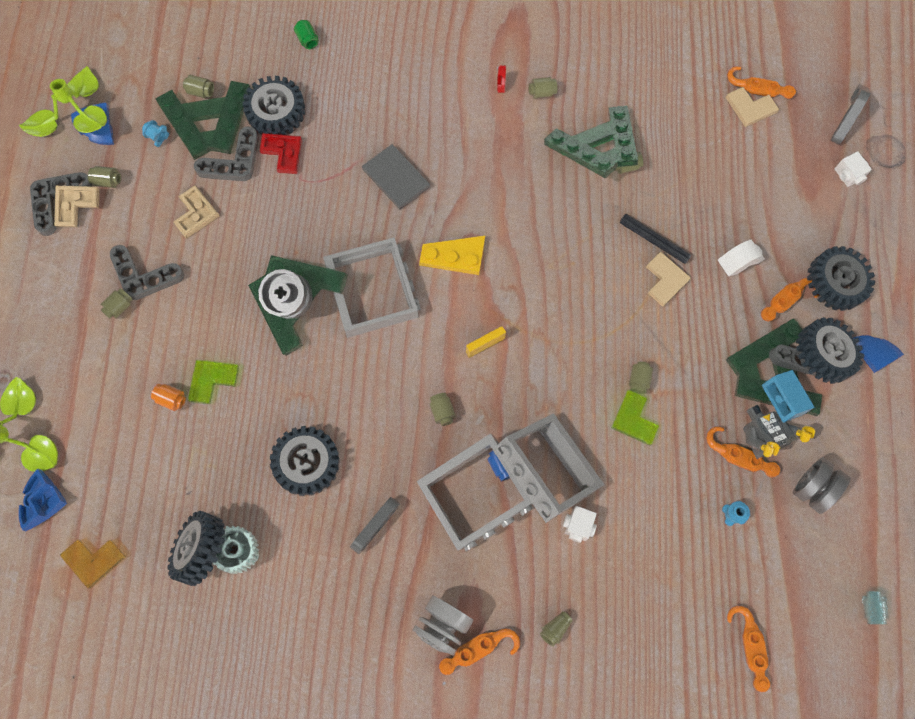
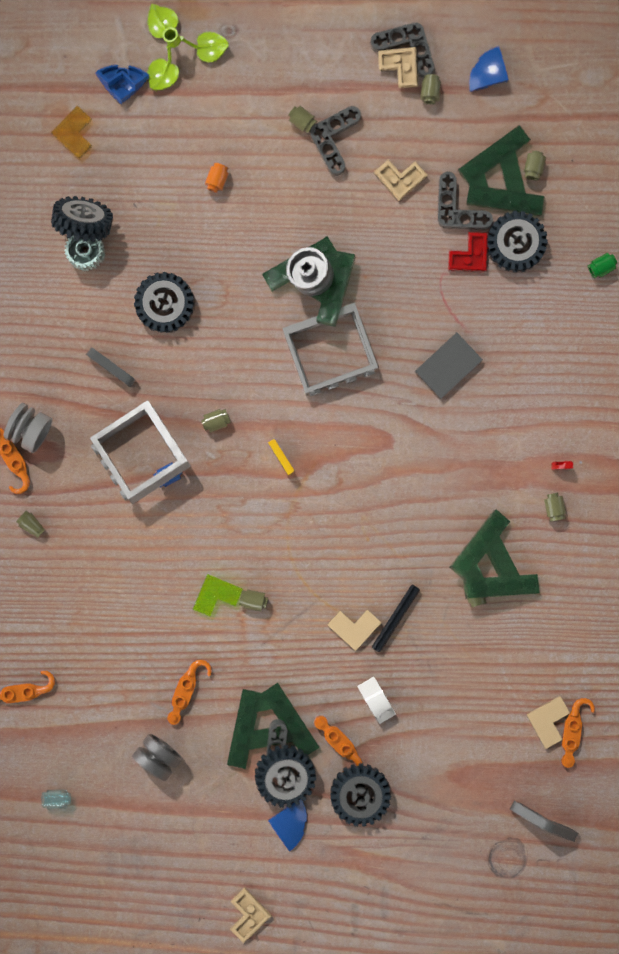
camera: 95 degrees right, 15 degrees up
(91, 119) = (487, 68): lime plant -> none
(155, 132) = (481, 130): dark azure brick -> none
(208, 374) = (238, 207): clear neon green tile -> none
(454, 255) = (368, 426): yellow wing -> none
(567, 453) = (176, 535): light grey window -> none
(580, 524) = (117, 544): white brick -> none
(731, 515) = (137, 678): dark azure brick -> none
(769, 434) = (204, 716): torso -> none
(787, 396) = (236, 731): dark azure brick -> none
(853, 169) = (479, 819): white brick -> none

